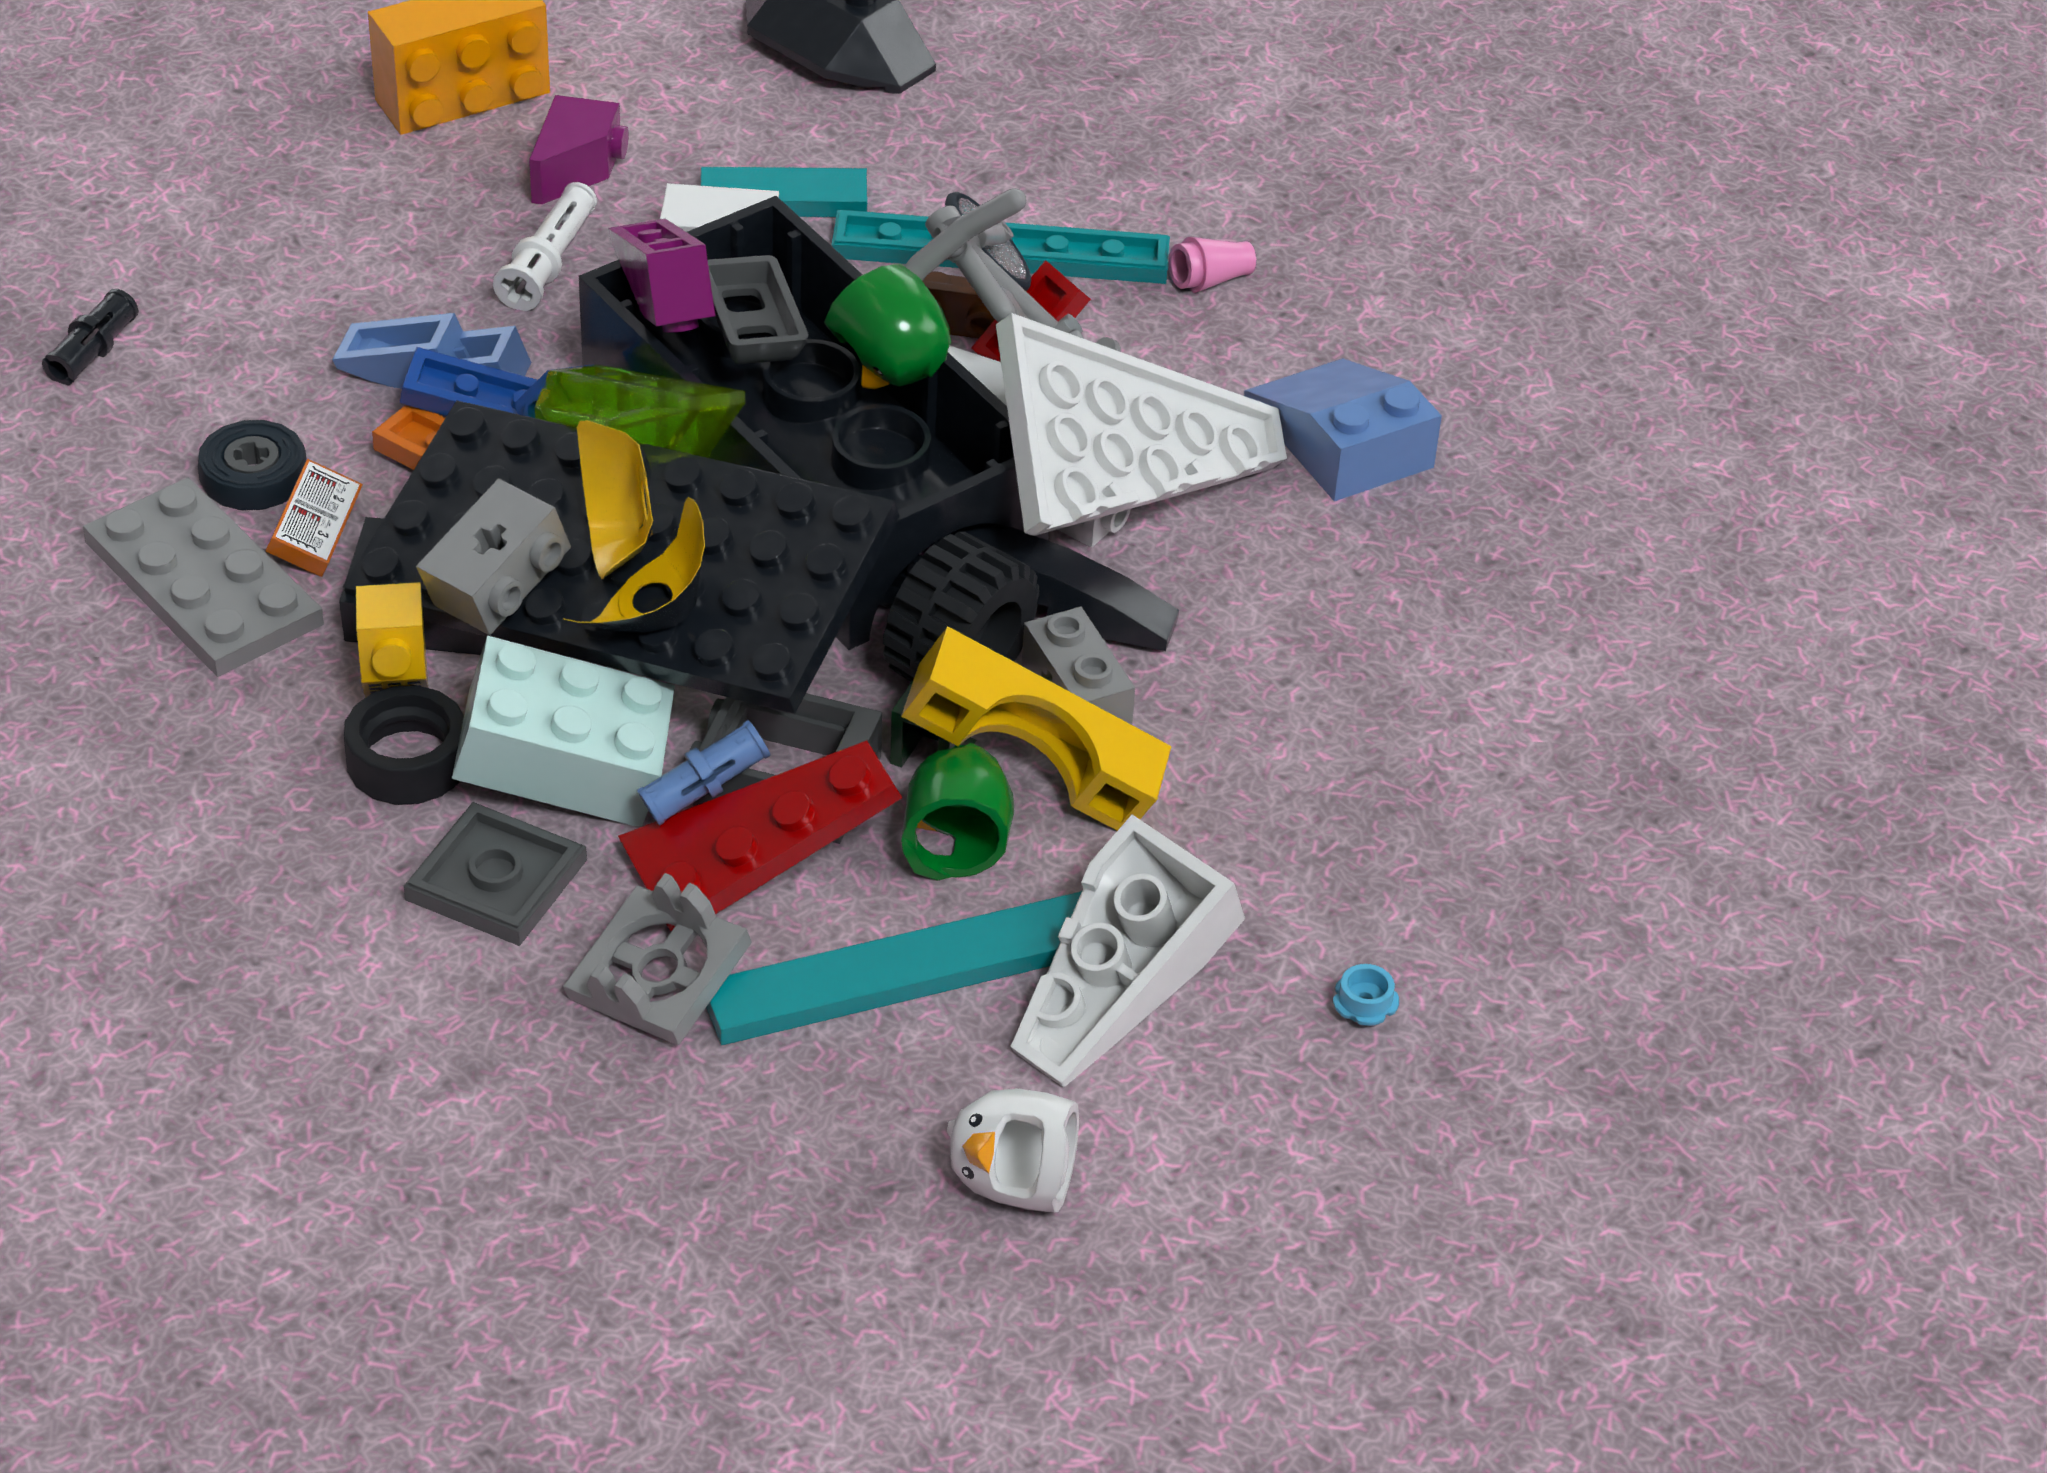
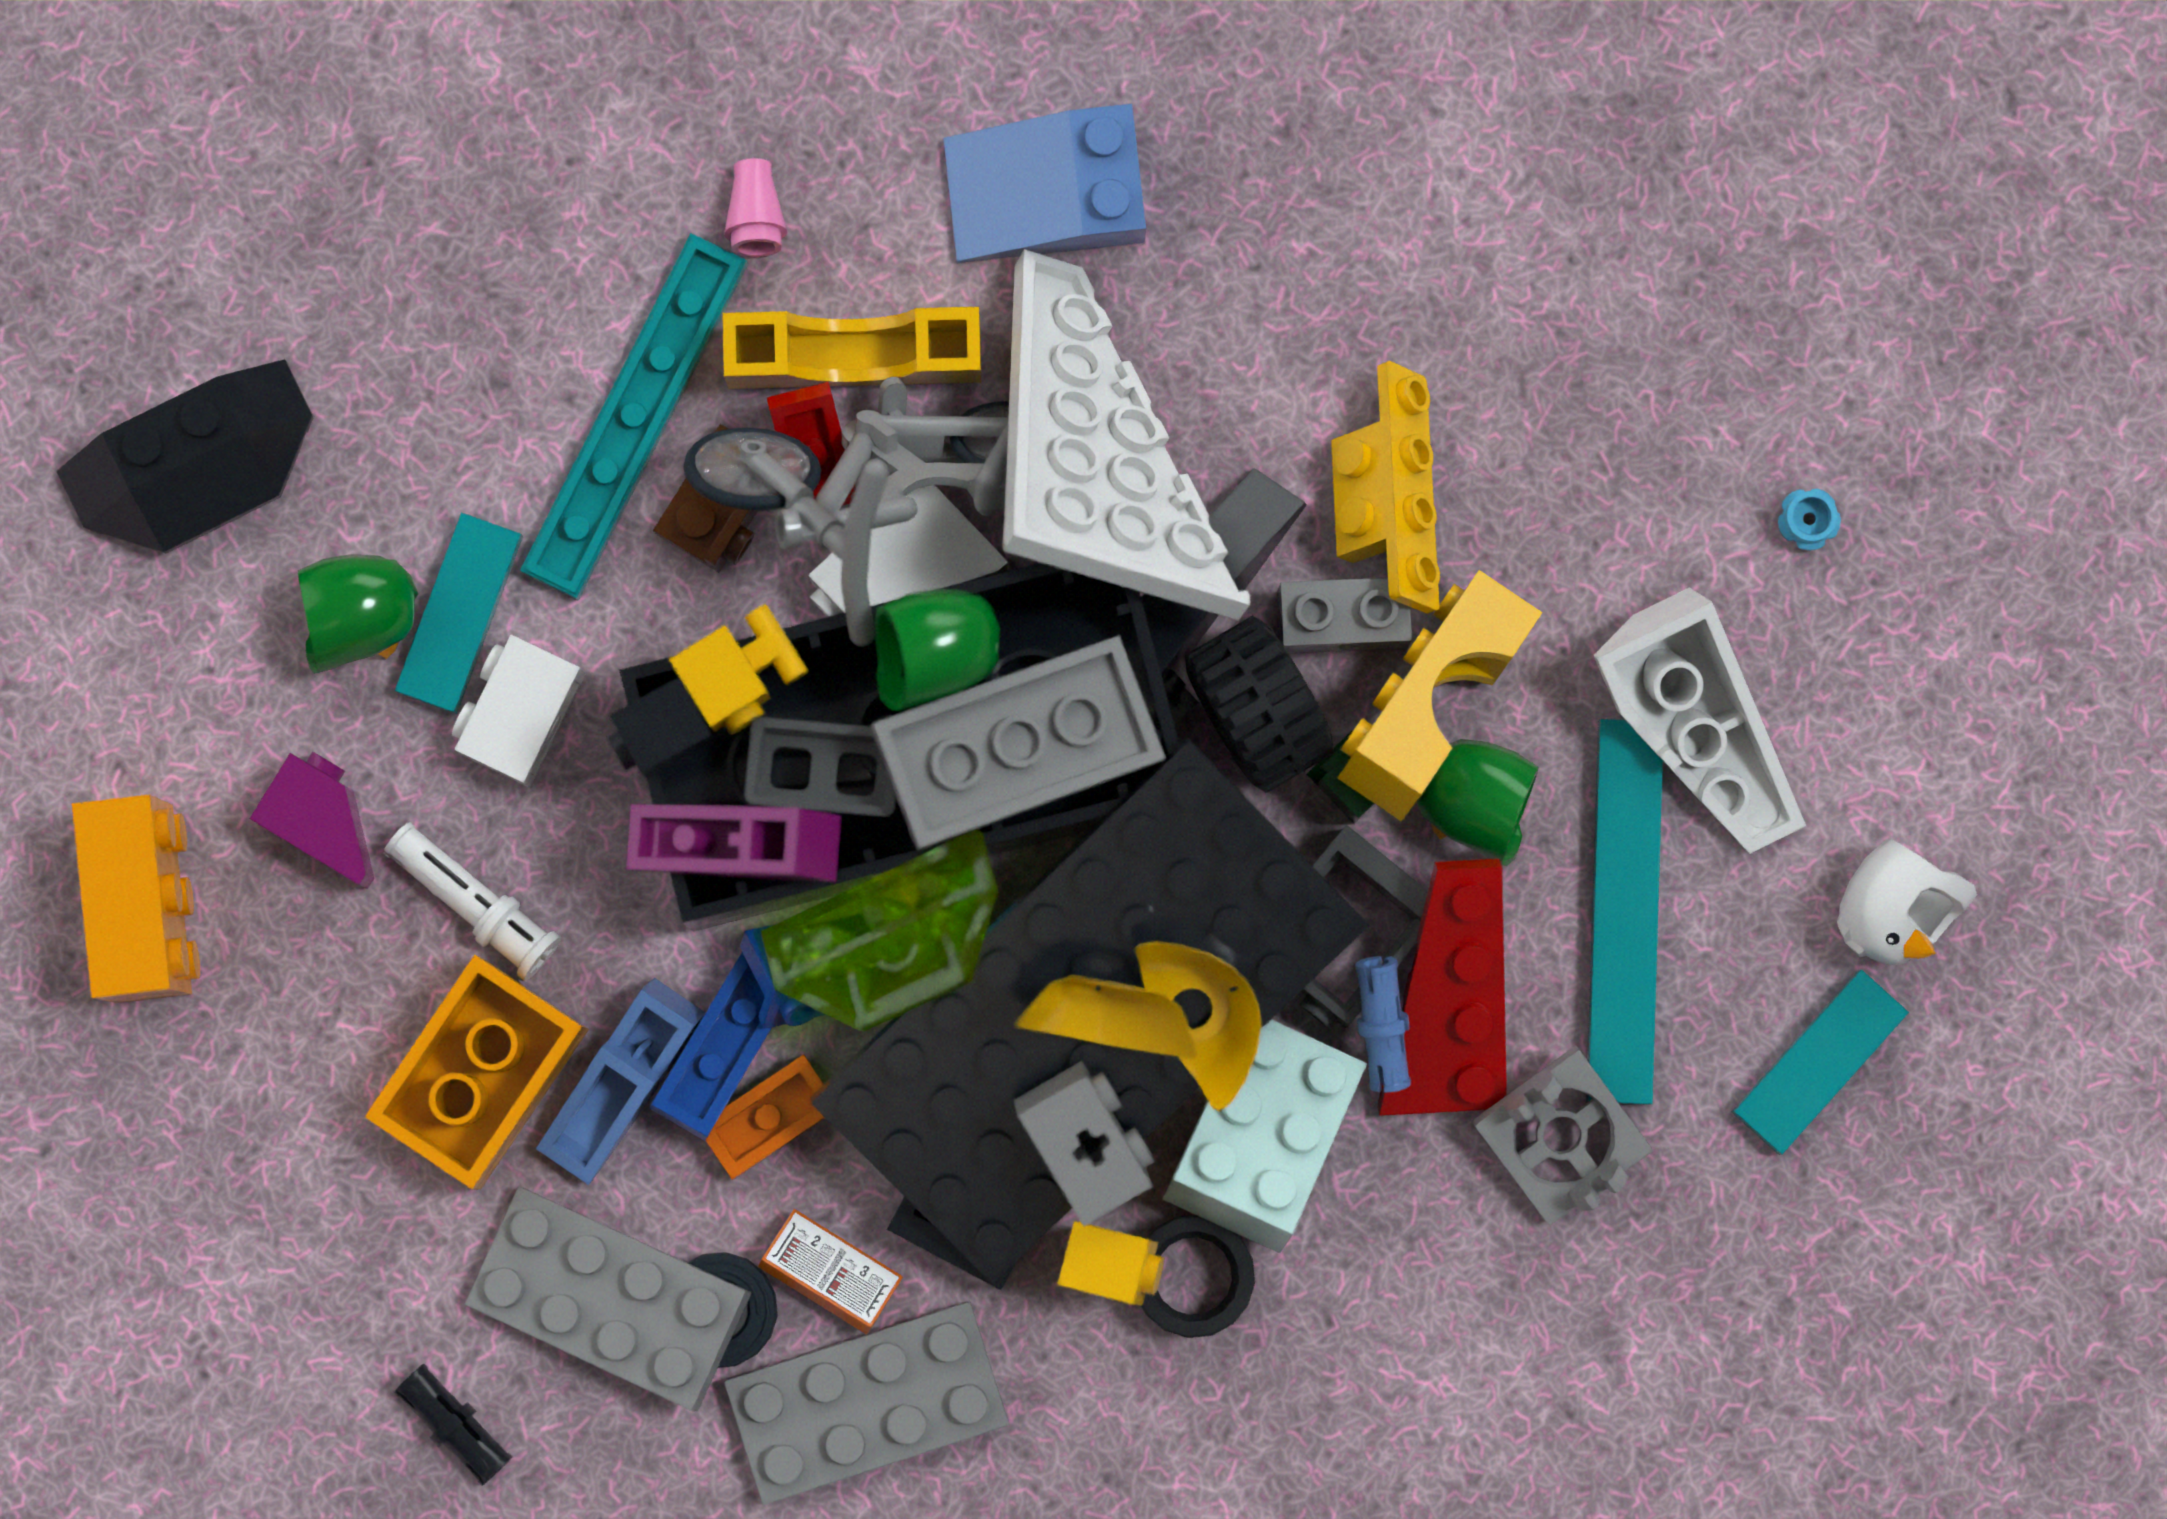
camera: 70 degrees left, 40 degrees up
(235, 387) = (608, 1299): none -> light grey plate
(398, 259) = (476, 1073): none -> light orange brick
(495, 873) = (1376, 1240): dark grey tile -> none
(737, 207) = (659, 730): none -> black brick
(752, 114) = (355, 608): none -> green piece
(805, 232) = (725, 677): none -> yellow brick
(826, 1158) = (1820, 1062): none -> teal tile
(835, 398) = (1017, 742): none -> light grey plate
(1107, 274) = (806, 351): none -> yellow arch
(1216, 678) = (1388, 490): none -> yellow bracket

